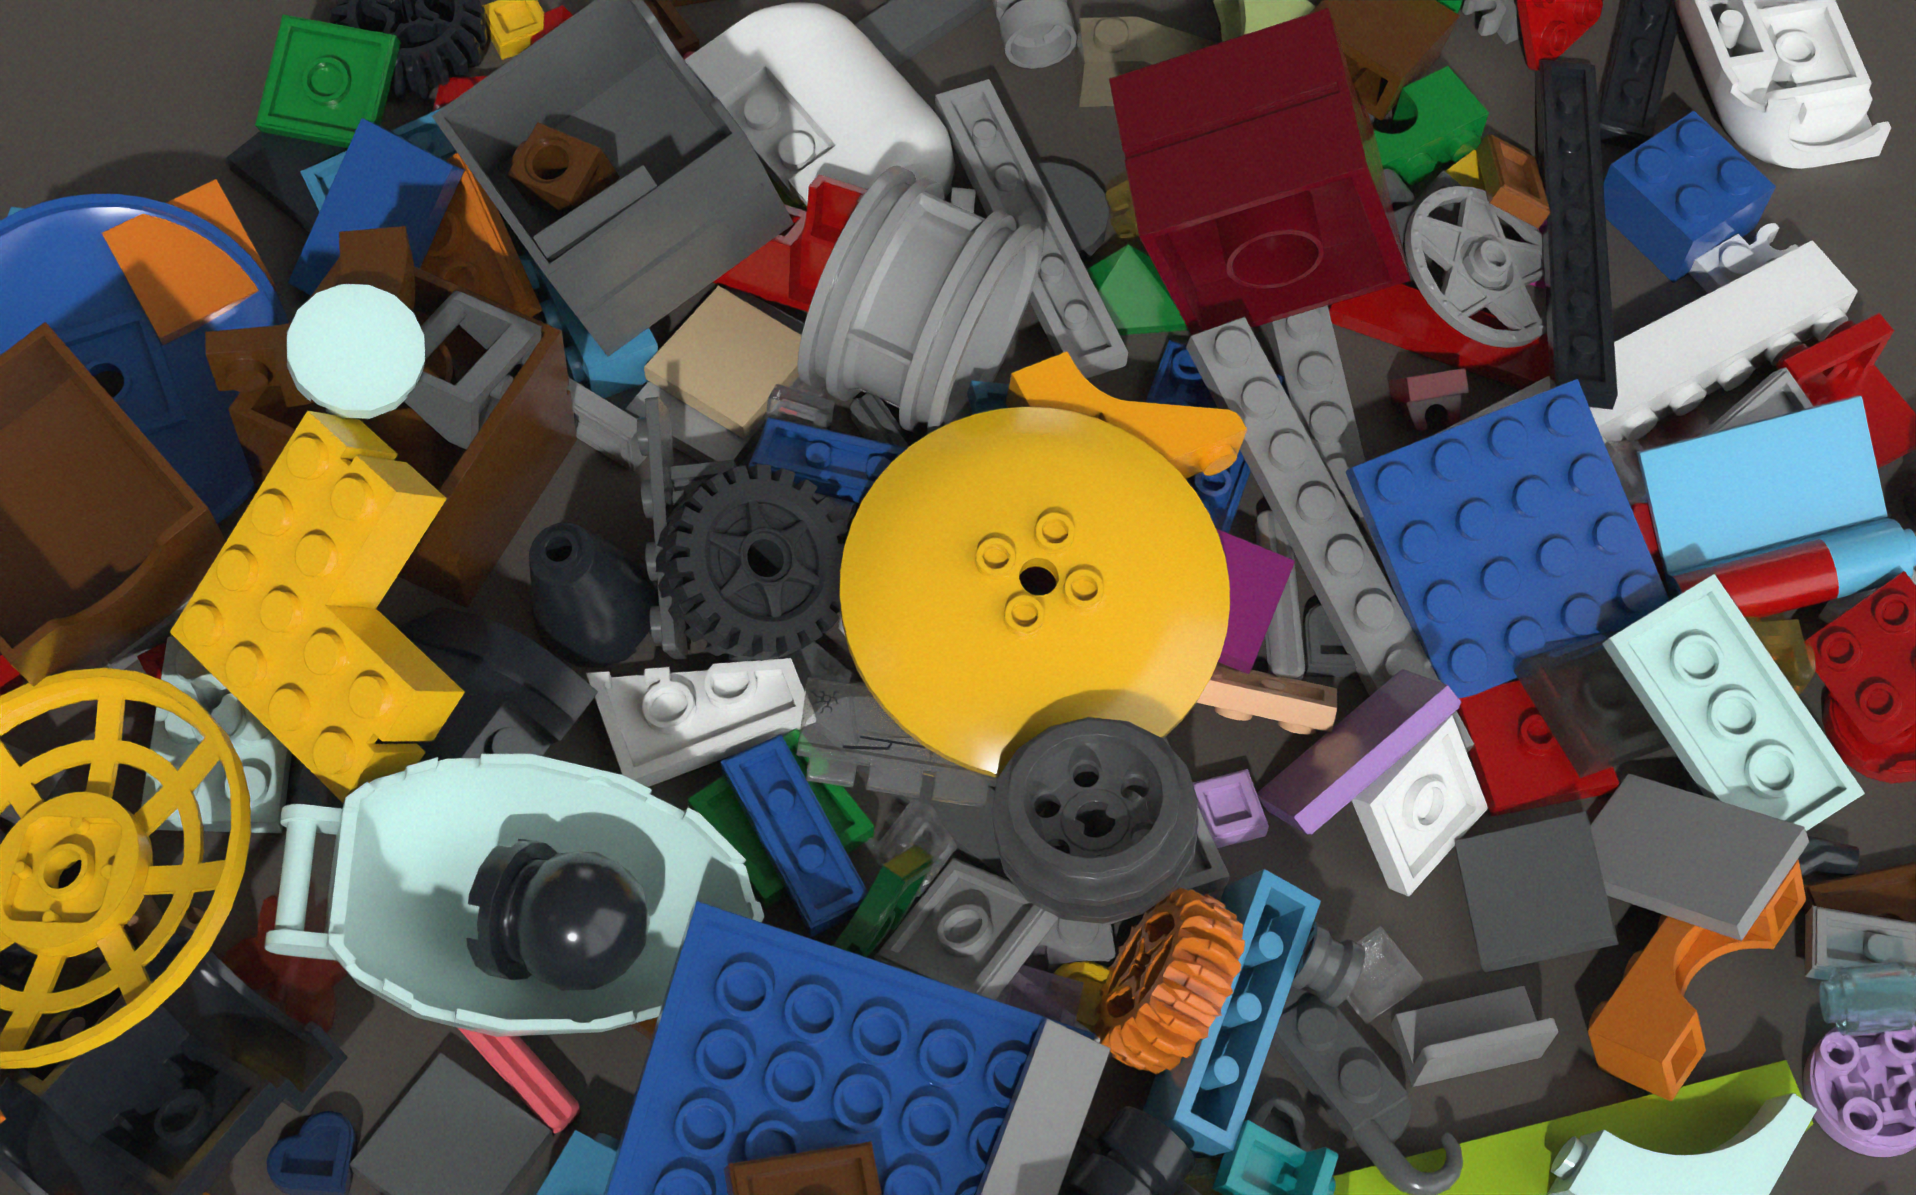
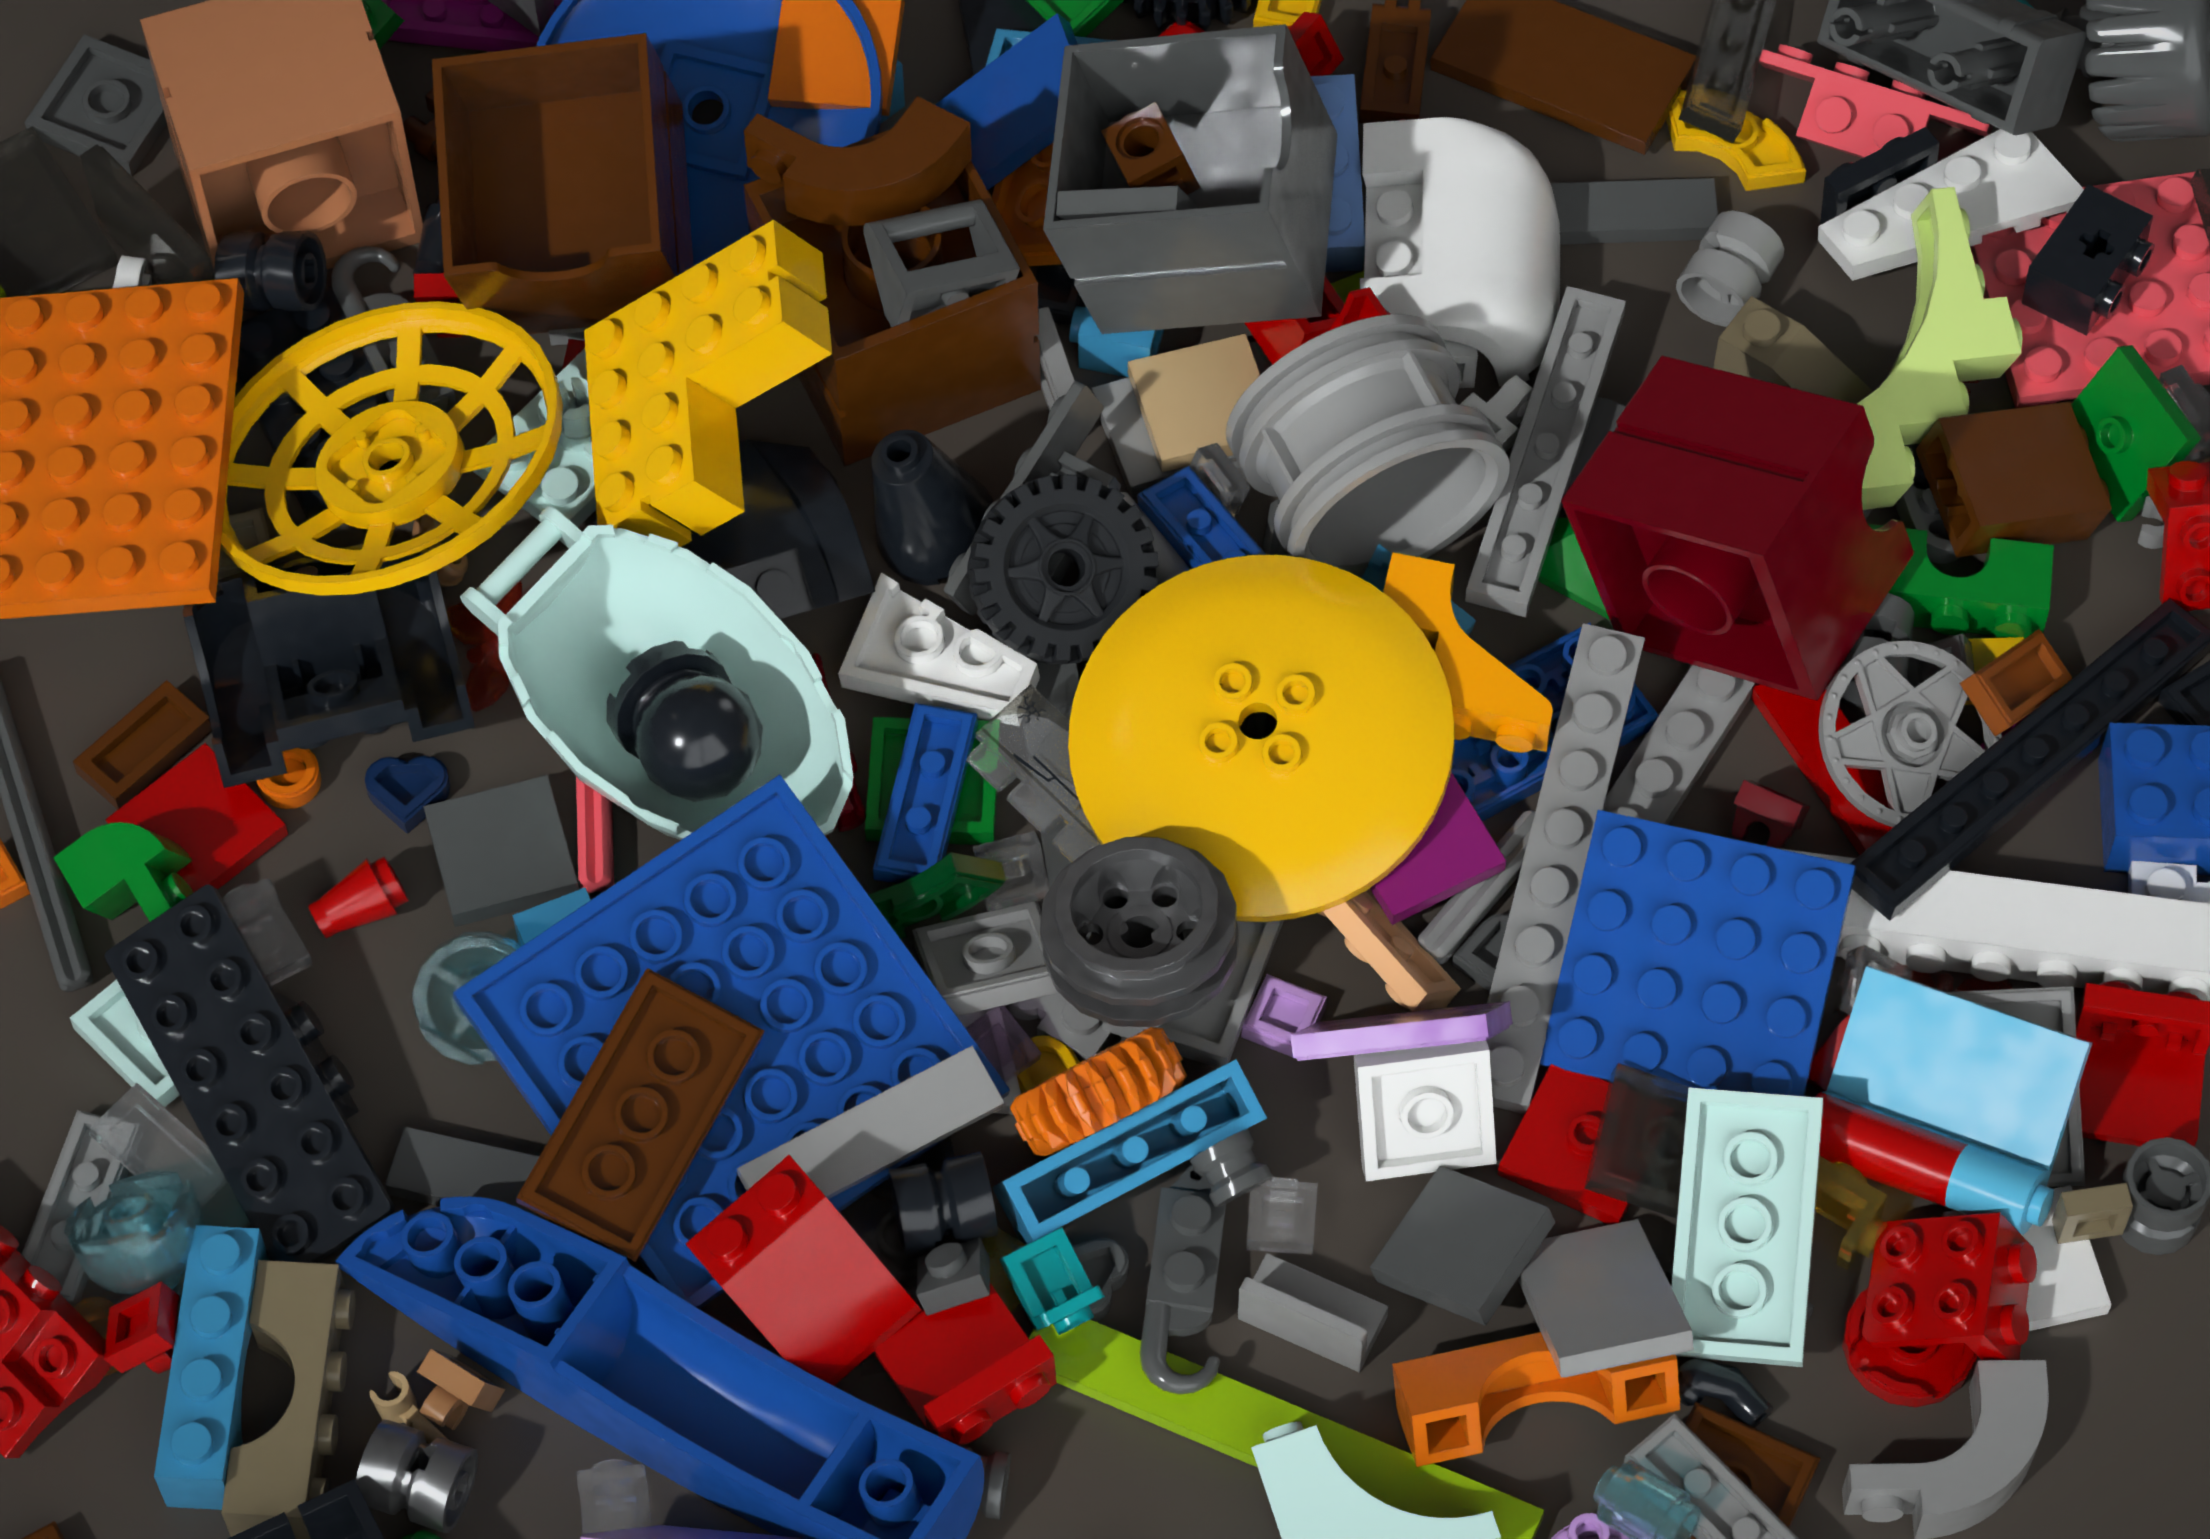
camera: 45 degrees right, 0 degrees up
(355, 351) = (848, 196): light aqua tile -> none

